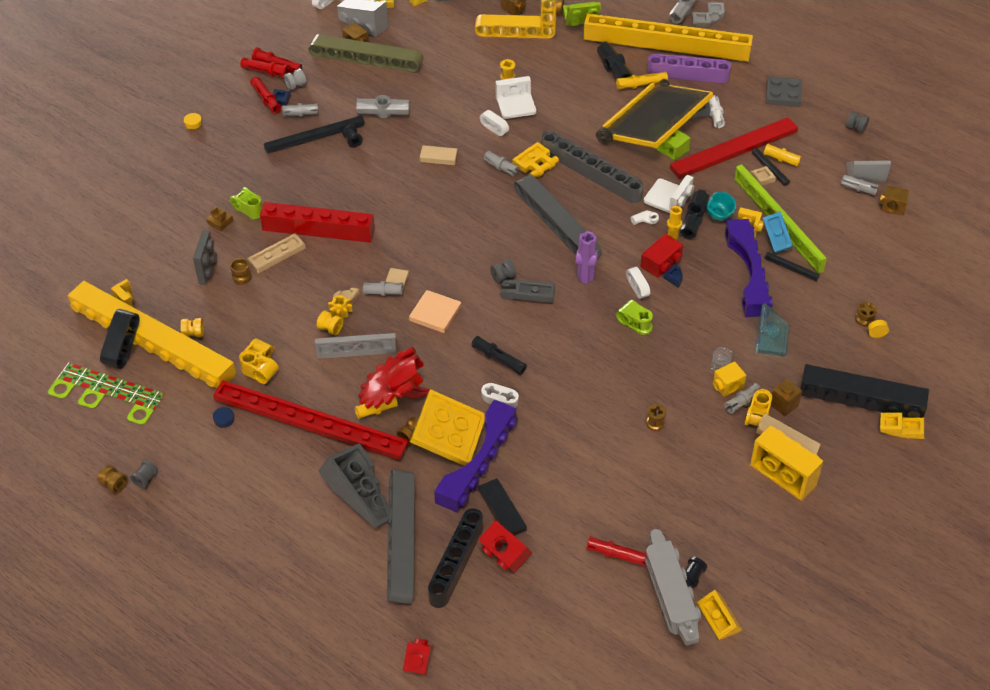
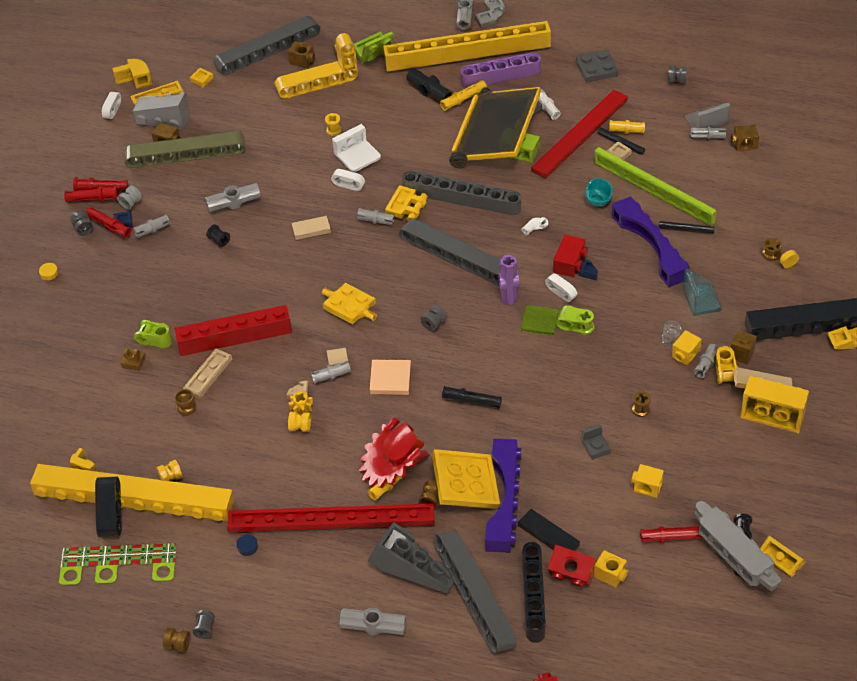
camera: 20 degrees left, 0 degrees up
(204, 257) = (146, 400): dark grey plate -> none
(242, 88) = (81, 222): none -> dark grey wheel
(256, 361) = (251, 484): yellow piece -> none
(302, 534) = (384, 621): none -> light grey piece
(312, 134) = (177, 246): black axle -> none
(355, 345) = (335, 434): light grey fence -> none
(434, 233) = (349, 303): none -> yellow plate
(500, 394) = (491, 431): white beam -> none
(528, 290) = (465, 328): dark grey hinge -> none
(537, 556) = (610, 561): none -> yellow brick
(592, 437) = (595, 442): none -> dark grey bracket
(602, 306) = (539, 320): none -> clear neon green piece
(623, 492) = (648, 480): none -> yellow brick
(667, 194) = (546, 198): white bracket -> none
(674, 222) = (567, 220): yellow pin -> none
(694, 214) = (578, 207): black piece -> none
(754, 218) = (634, 192): yellow bracket -> none
(778, 232) = (661, 200): dark azure plate -> none

